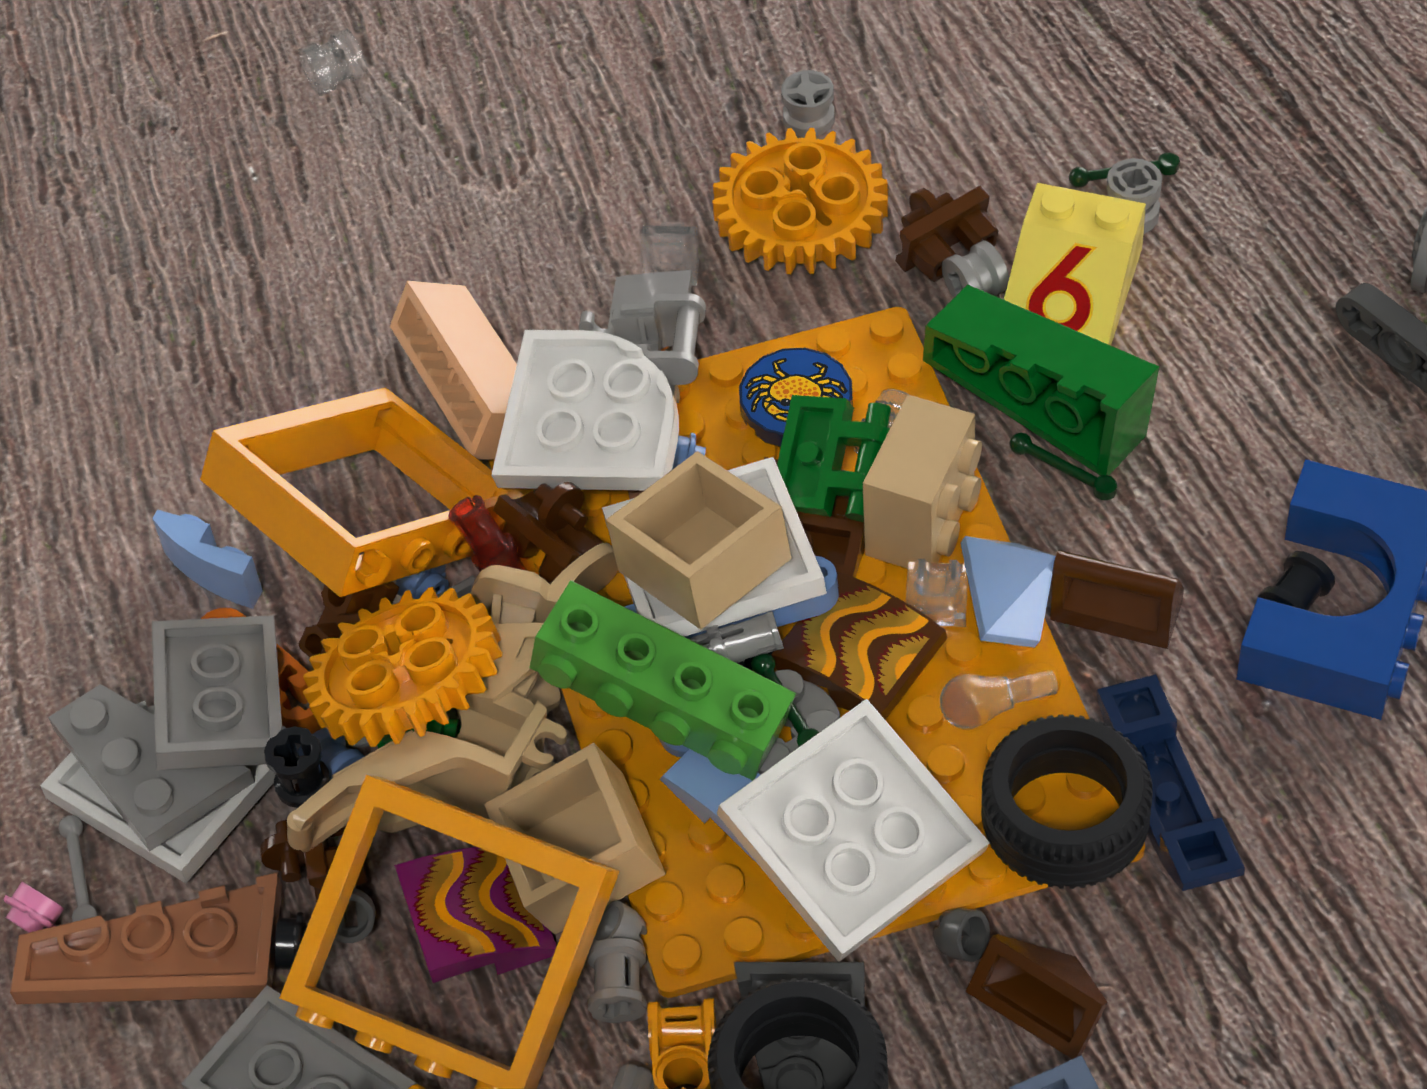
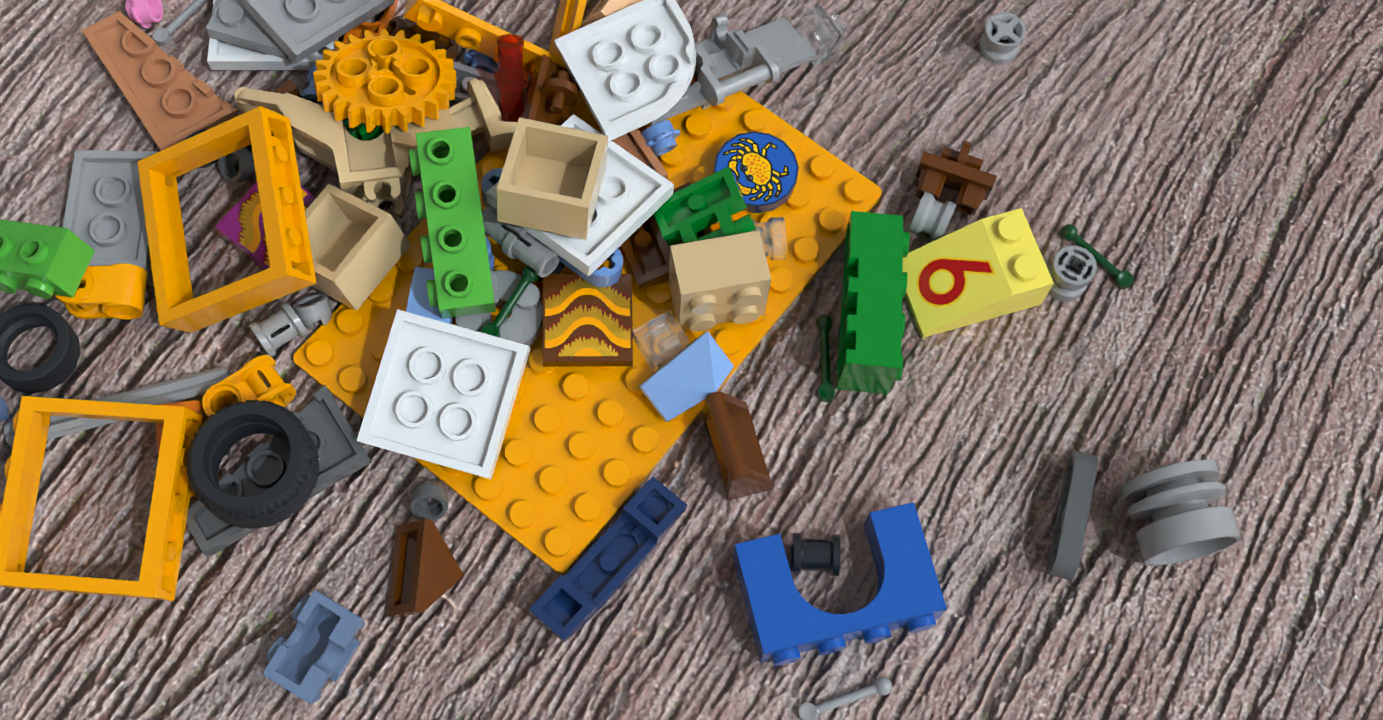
camera: 45 degrees right, 15 degrees up
(285, 762) = (286, 70): black bush -> none
(800, 200) = (881, 69): light orange gear -> none
(976, 699) = (594, 410): clear piece -> none
(1066, 747) = (531, 461): black tyre -> none

